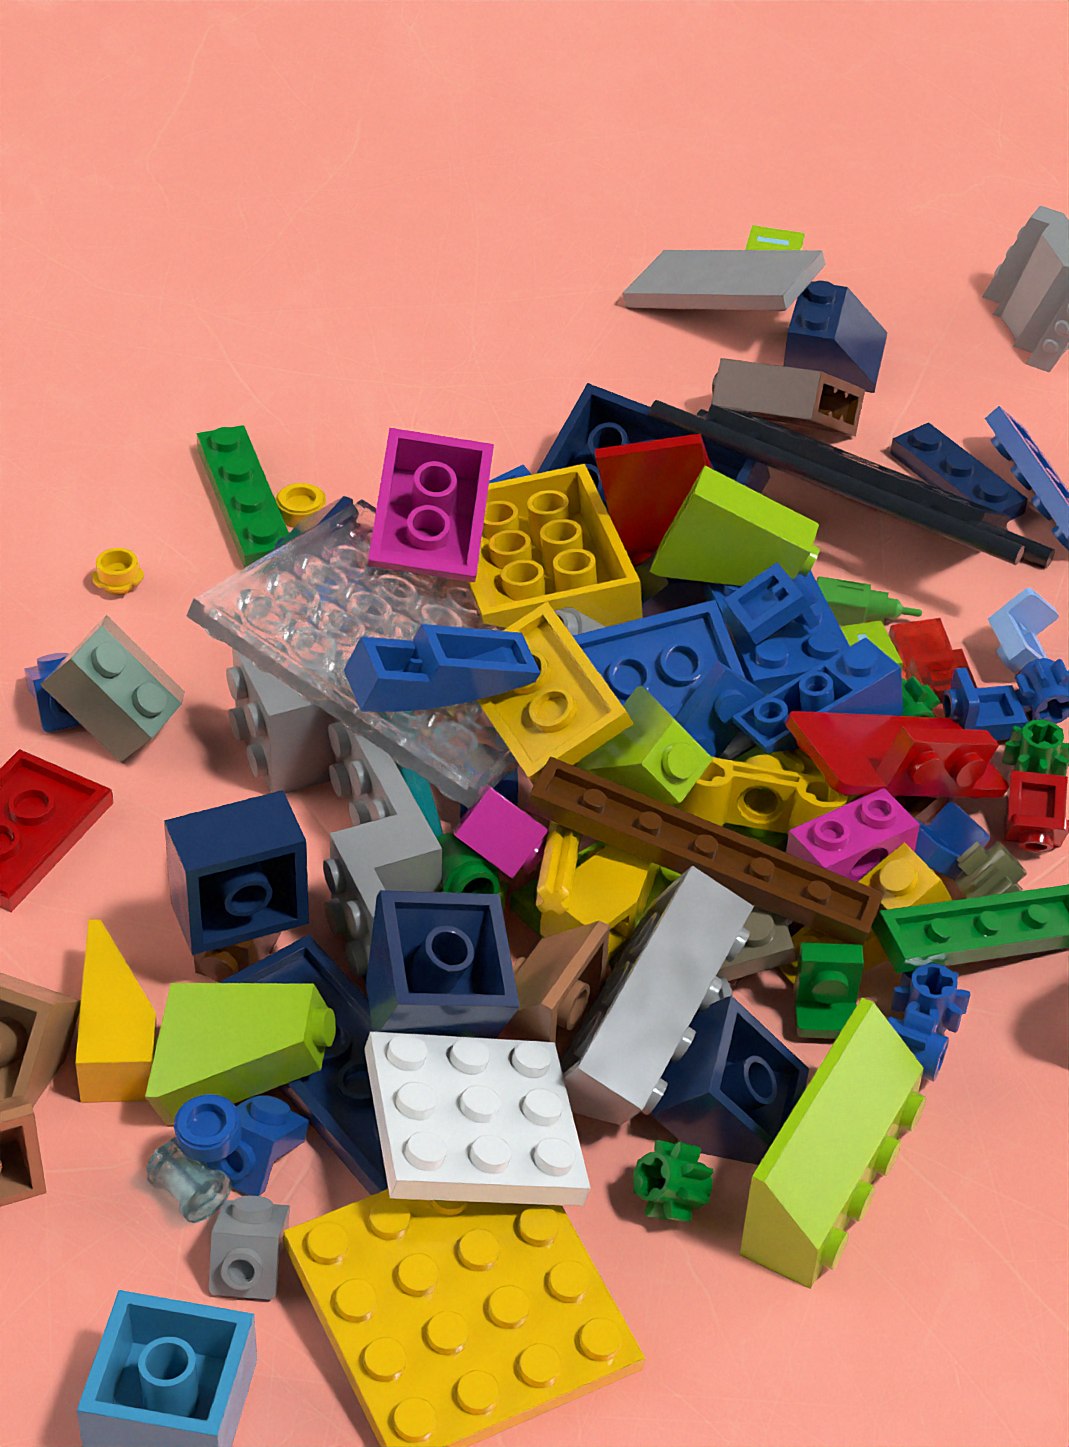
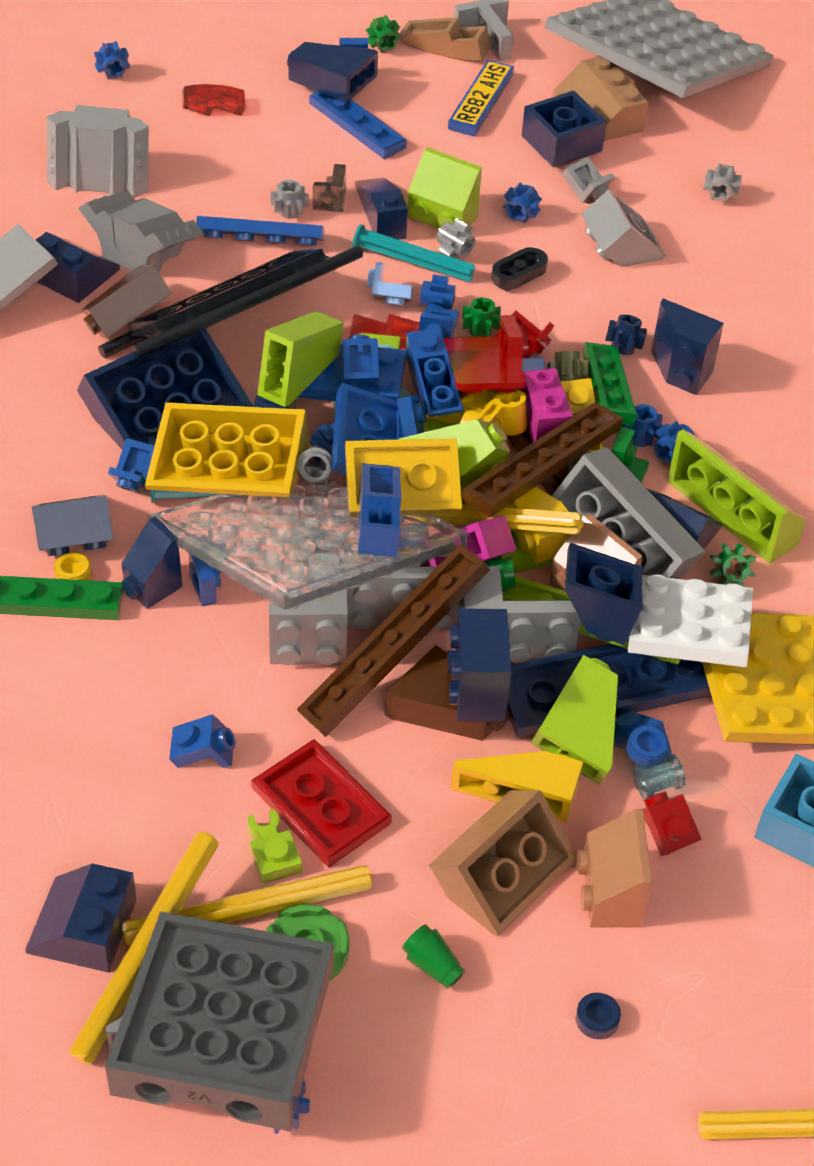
camera: 70 degrees left, 5 degrees up
(103, 1210) = (670, 822): none -> red bracket
(114, 689) = (242, 702): sand green slope -> none
(117, 571) = (90, 677): yellow plate -> none
(247, 1247) = (713, 758): light grey bracket -> none
(310, 791) = (393, 640): none -> reddish brown plate
(345, 458) = (72, 523): none -> slope
(431, 505) = (193, 478): dark pink slope -> none
(647, 487) = (236, 372): red slope -> none
(932, 366) = (137, 230): none -> light grey slope
(953, 469) = (221, 262): dark blue plate -> none

